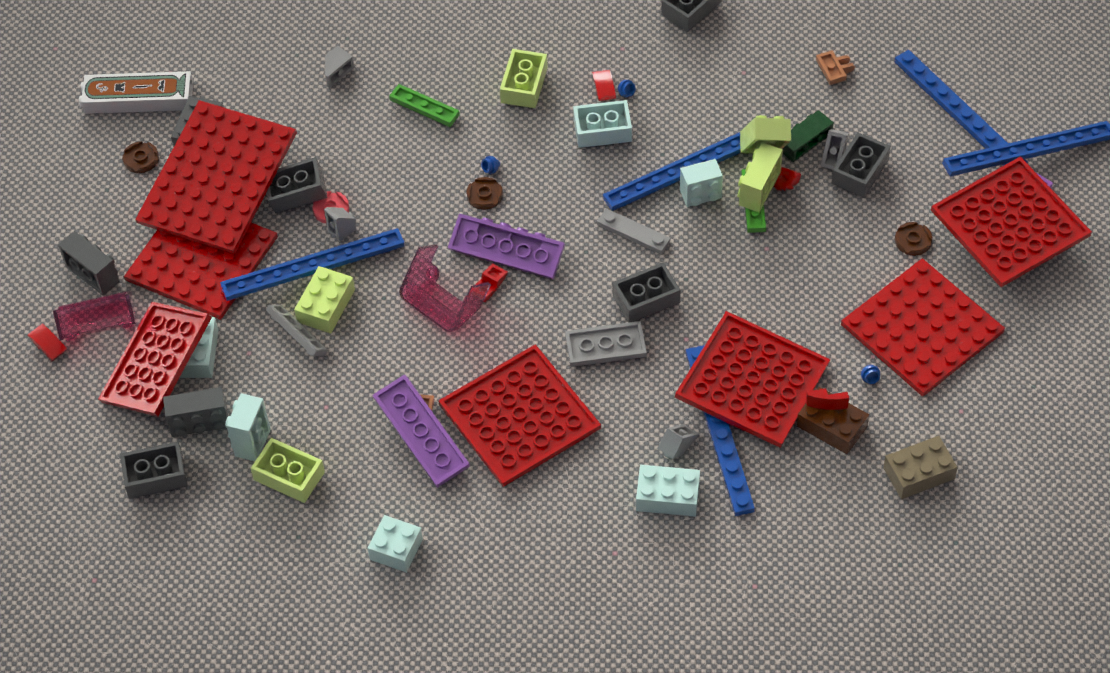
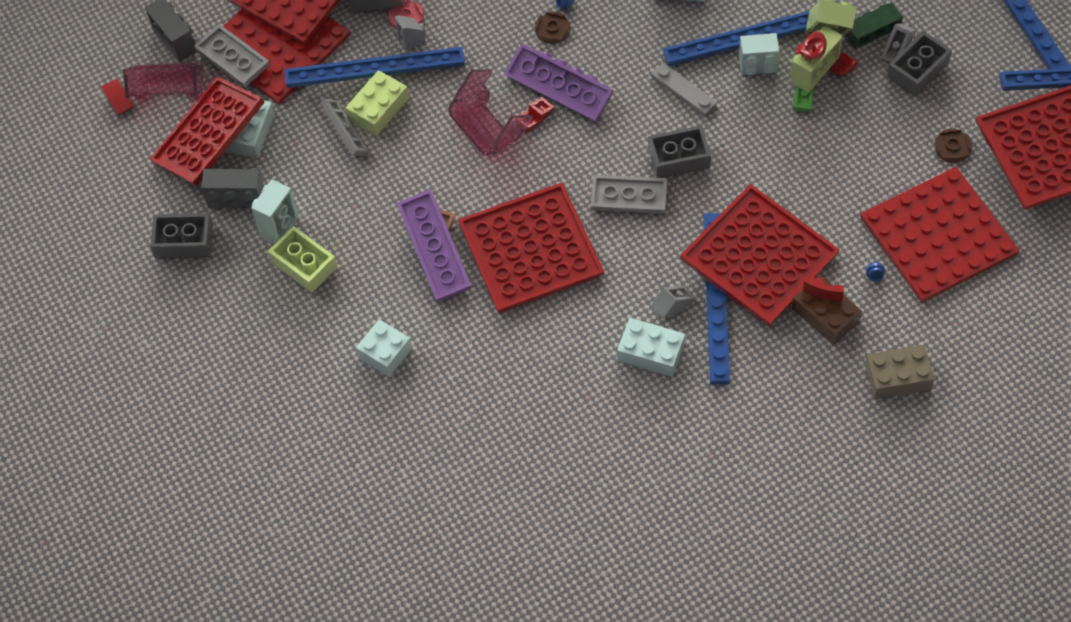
camera: 15 degrees right, 5 degrees up
(160, 278) = (231, 55): none -> light grey plate
(757, 165) = (813, 46): none -> red hat

